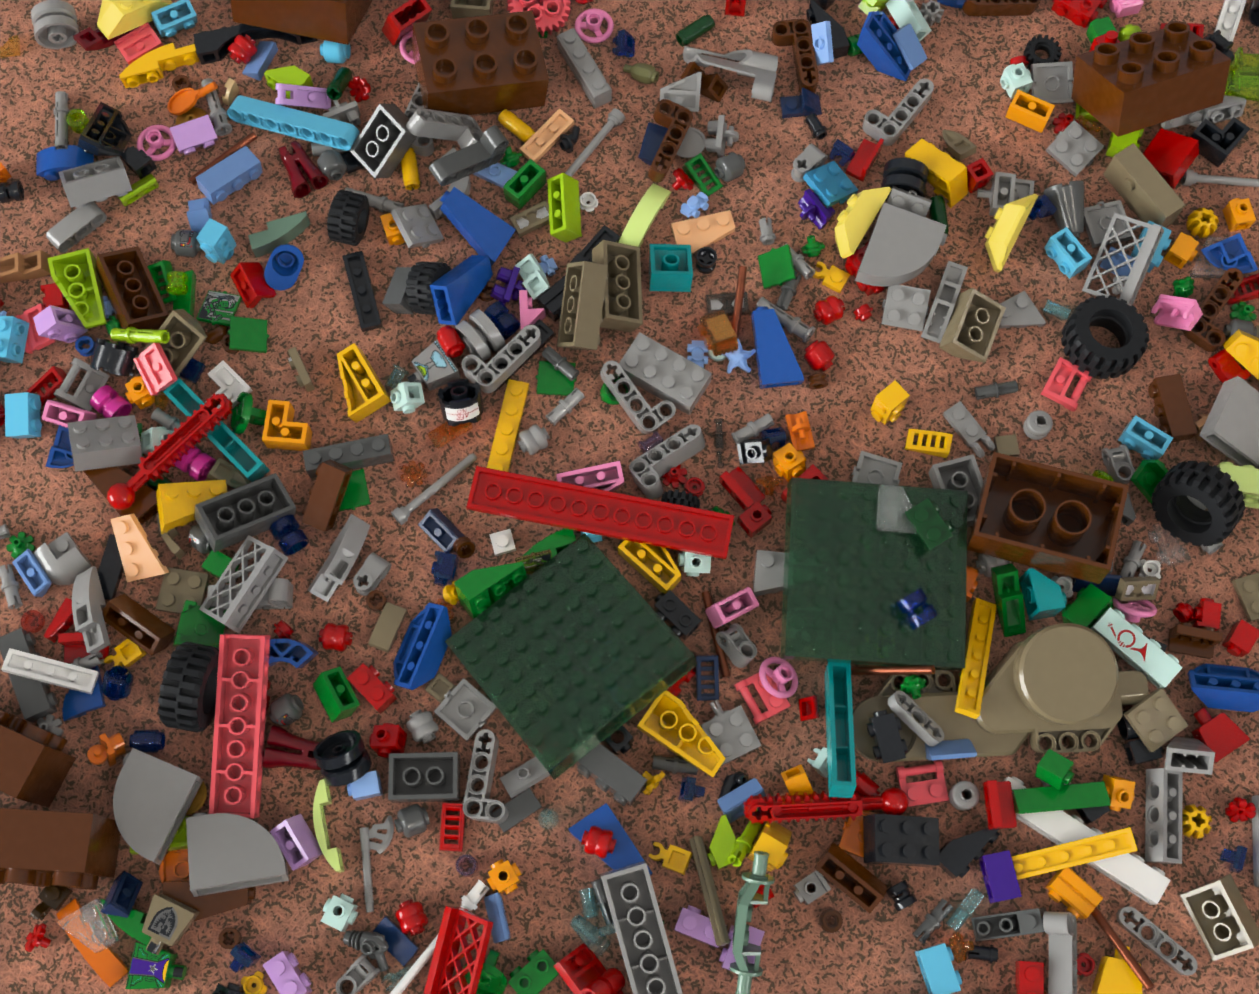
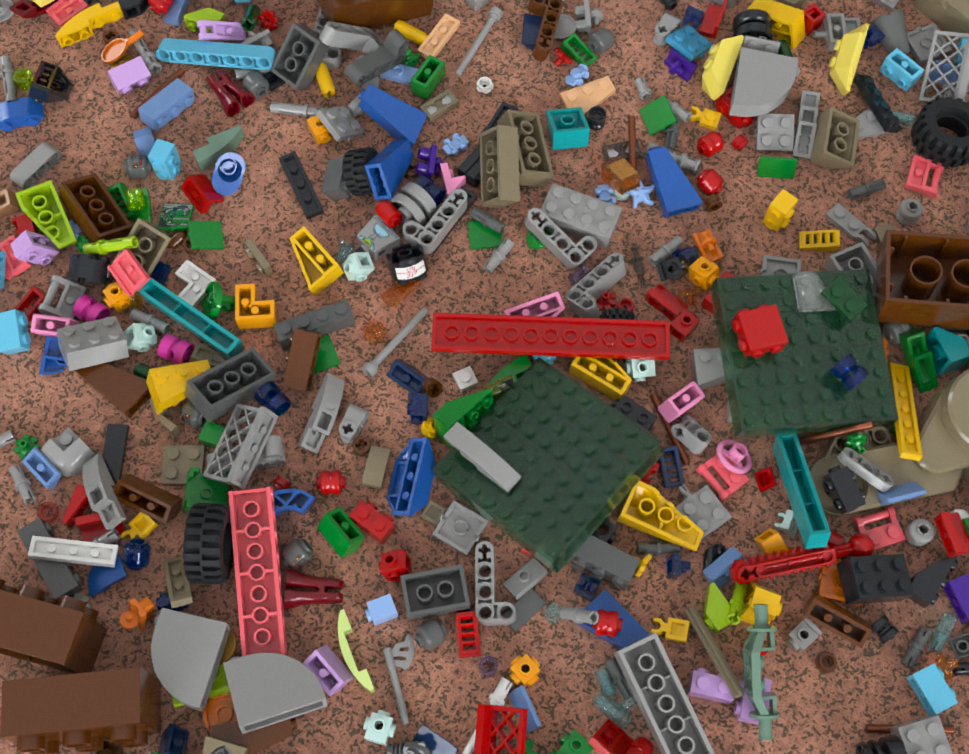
camera: 10 degrees left, 5 degrees down
(84, 351) = (58, 261): blue bush -> none
(95, 181) = (48, 124): light grey brick -> none
(122, 495) = (116, 385): red gear -> none
(136, 553) = (134, 433): light nougat wing -> none
(138, 161) = (83, 105): black brick -> none
(139, 189) = (86, 129): lime slope -> none
(152, 134) = (95, 85): bright pink piece -> none
(153, 730) = (177, 584): none -> dark tan plate
(231, 92) = (156, 37): tan tile -> none
(342, 758) = (358, 586): black wheel -> none
(348, 217) = (279, 124): black tyre -> none
(411, 917) = (446, 721): red piece -> none
(422, 726) = (424, 549): light grey piece -> none
(497, 639) = (482, 457): none -> light grey slope
(508, 425) = (451, 276): yellow plate -> none
(533, 276) = (449, 151): light aqua slope -> none
(533, 439) = (476, 287): light grey piece -> none
(564, 207) = (466, 91): lime brick -> none
(567, 141) = (457, 39): black plate -> none
(571, 828) = (579, 615): none -> light grey pin
(589, 796) = (586, 587): none -> clear blue tile
(644, 215) = (535, 88): yellowish green slope -> none
(813, 247) = (685, 96): green plant -> none
(825, 547) = (759, 330): none -> red brick
(899, 349) = (776, 167): none -> green slope
(1030, 289) = (877, 103): none -> black plate

